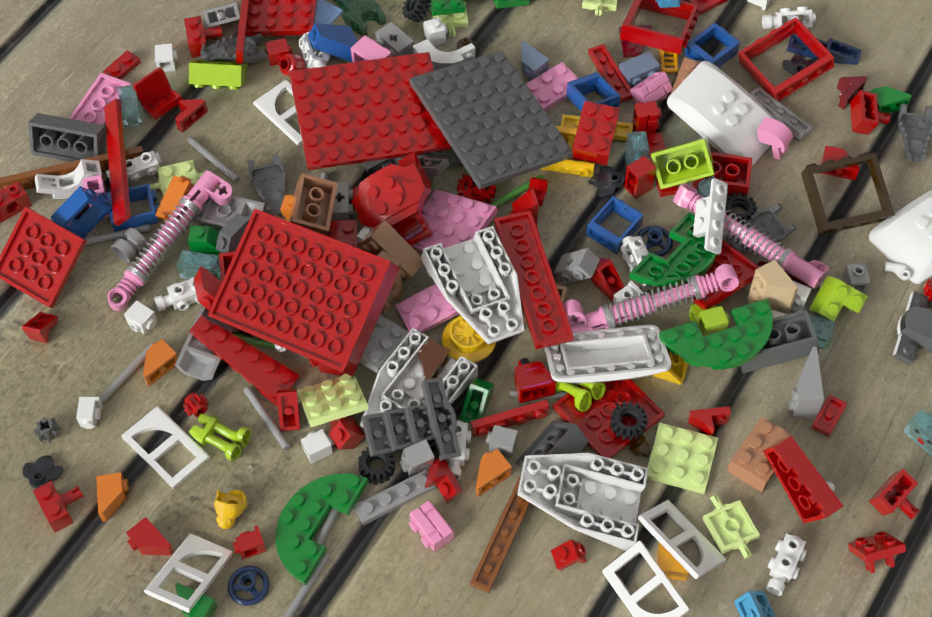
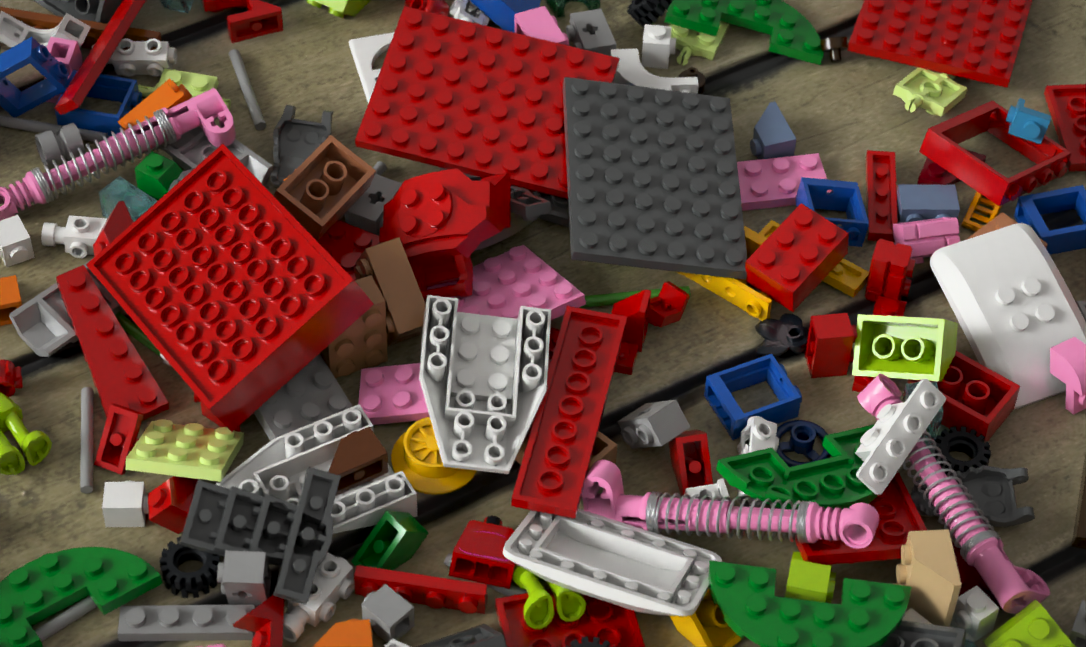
camera: 25 degrees right, 10 degrees down
(473, 191) = (581, 274): red gear -> none
(636, 146) = (850, 297): clear light blue brick -> none

